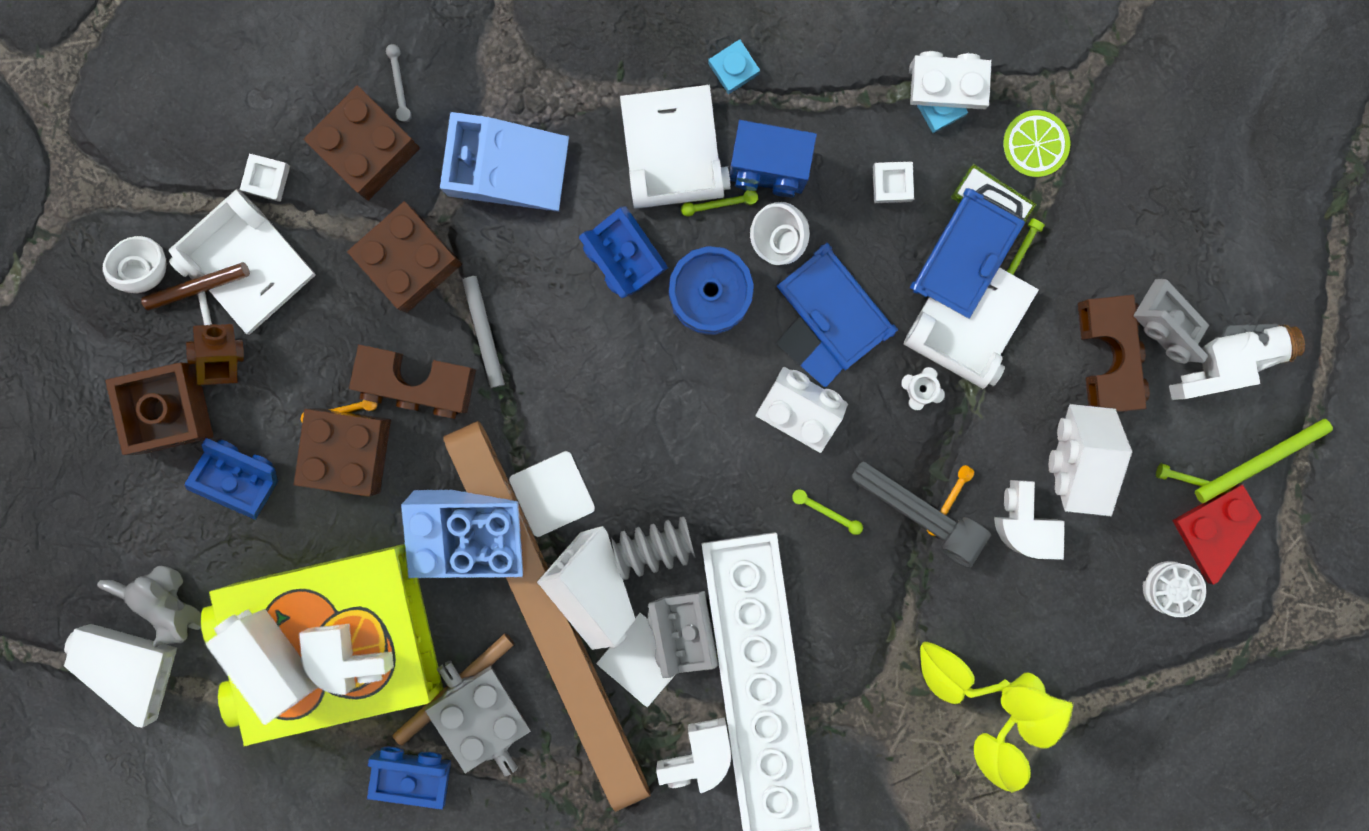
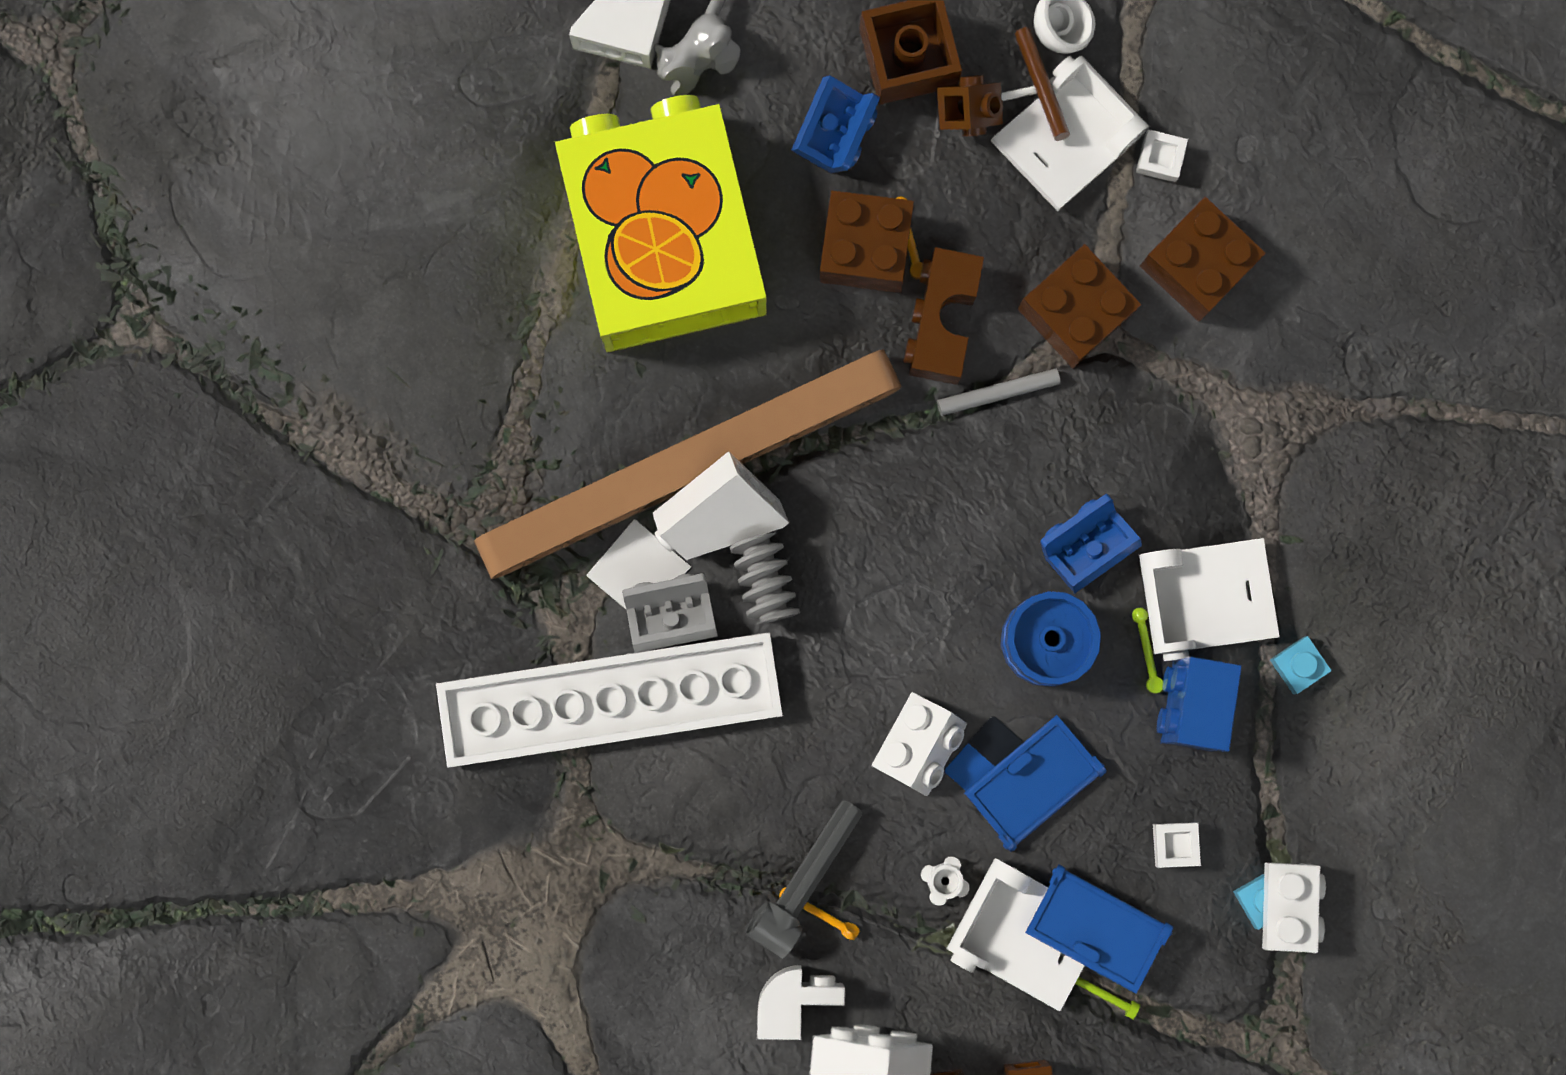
camera: 85 degrees right, 5 degrees down
(261, 663) = (647, 161): white brick -> none
(330, 660) = (646, 231): white brick -> none
(403, 113) = (1236, 302): light grey hinge -> none
(408, 778) = (510, 316): blue bracket -> none
(461, 535) = (778, 369): light blue slope -> none
(477, 719) = (576, 389): light grey plate -> none
(486, 659) = (606, 364): medium nougat bar -> none
(503, 162) = (1185, 411): light blue slope -> none
(552, 493) = (821, 468): white sticker -> none
(708, 759) = (532, 643): white brick -> none
(779, 233) = (1116, 716): white piece -> none
(855, 527) = (820, 744): lime hinge -> none
(994, 192) = (1167, 962): tile -> none
(1036, 143) = (1225, 1011): lime sticker -> none
(1038, 715) = (596, 996): neon yellow plant -> none

